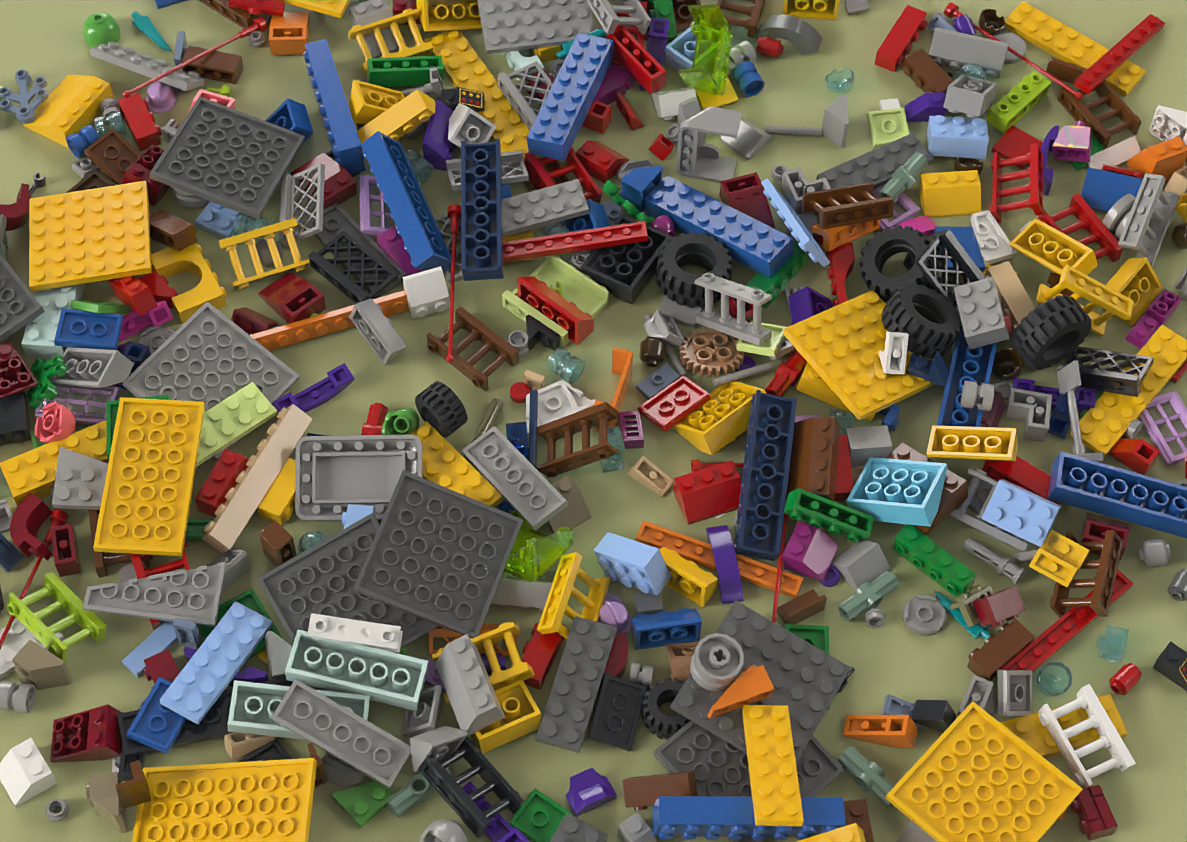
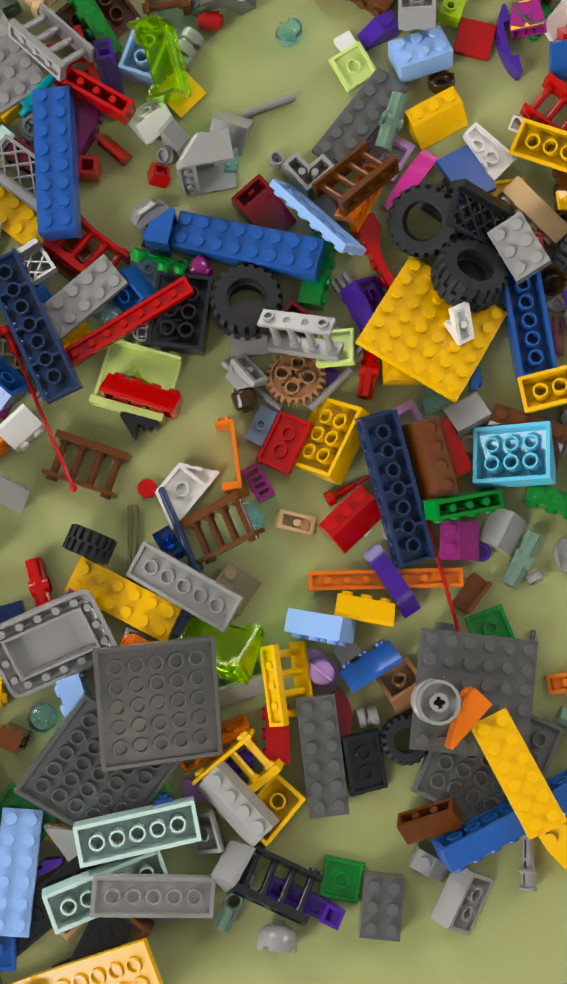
camera: 20 degrees left, 25 degrees up
(354, 631) = (122, 807): white fence -> none
(363, 801) = (192, 931): bright green wing -> none
(401, 422) = (59, 570): bright green head -> none
(519, 340) = (122, 439): light grey wheel -> none
(534, 380) = (155, 474): tan tile -> none
(568, 367) = (175, 446): clear light blue wheel -> none
(589, 791) = (371, 839): dark purple slope -> none
(600, 160) = (110, 213): red slope -> none
(735, 159) = (232, 166): none -> clear light blue slope
(748, 79) = (208, 68): blue wheel -> none
(836, 121) = (306, 83): light grey slope -> none
(932, 371) = (491, 322): dark blue slope -> none
(969, 395) = (546, 334): light grey wheel -> none
(1034, 187) = (510, 84): red fence -> none

